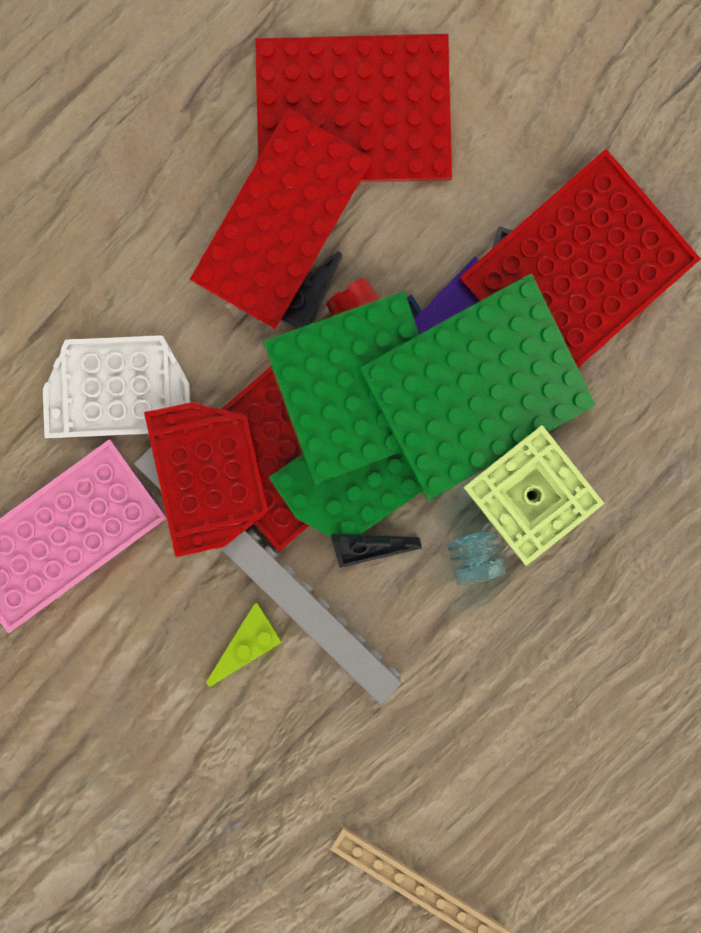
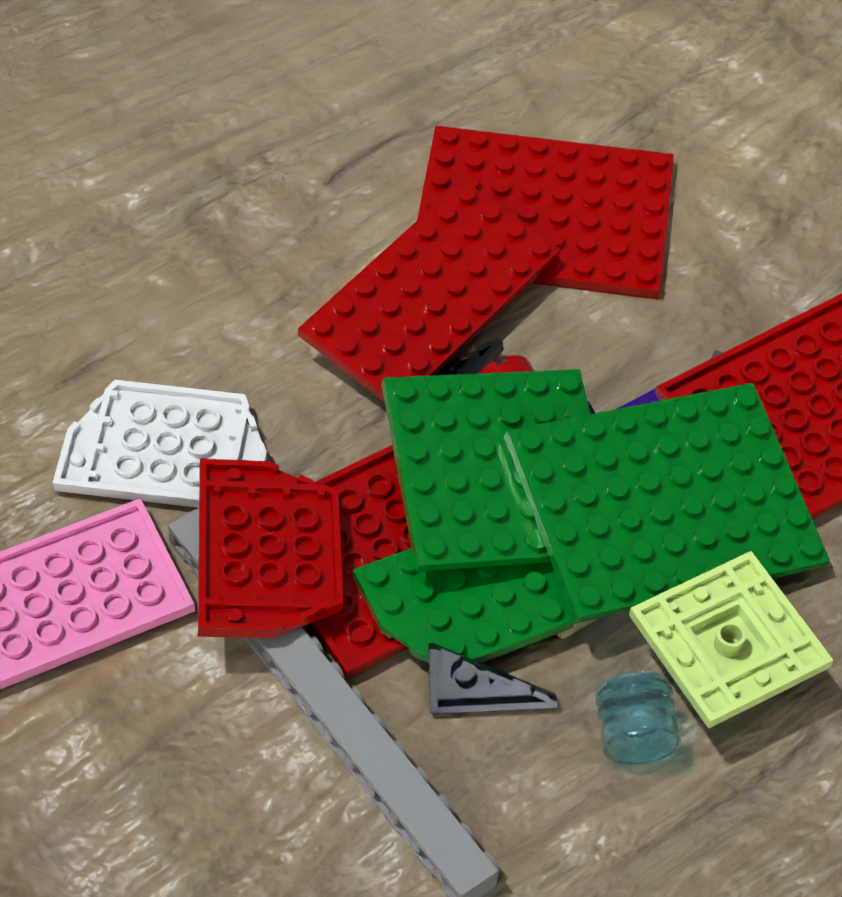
camera: 10 degrees right, 35 degrees down
(251, 641) = (276, 791): lime wing -> none

